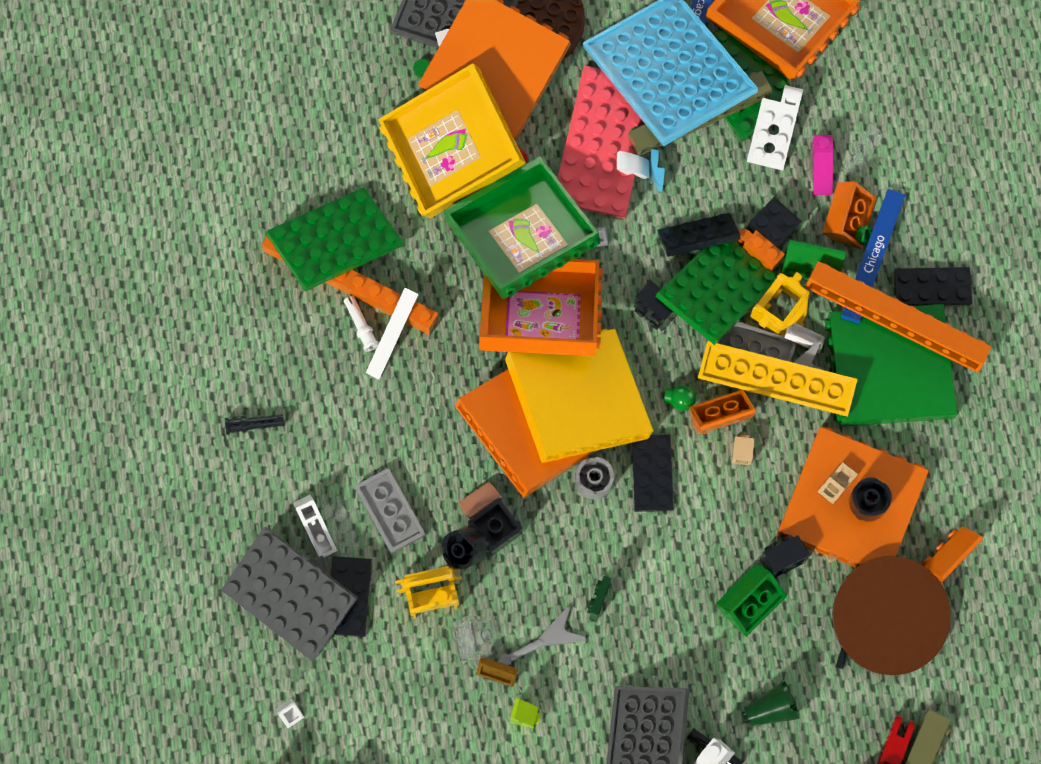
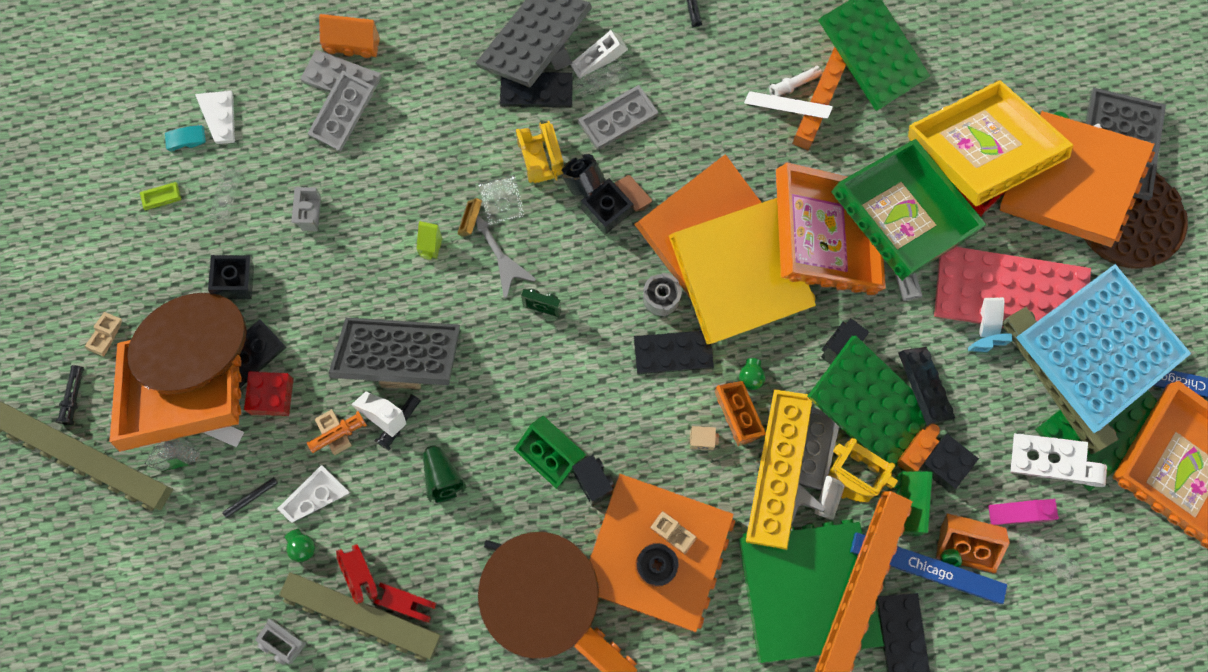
camera: 85 degrees right, 0 degrees up
(289, 713) = (429, 48): white slope -> none

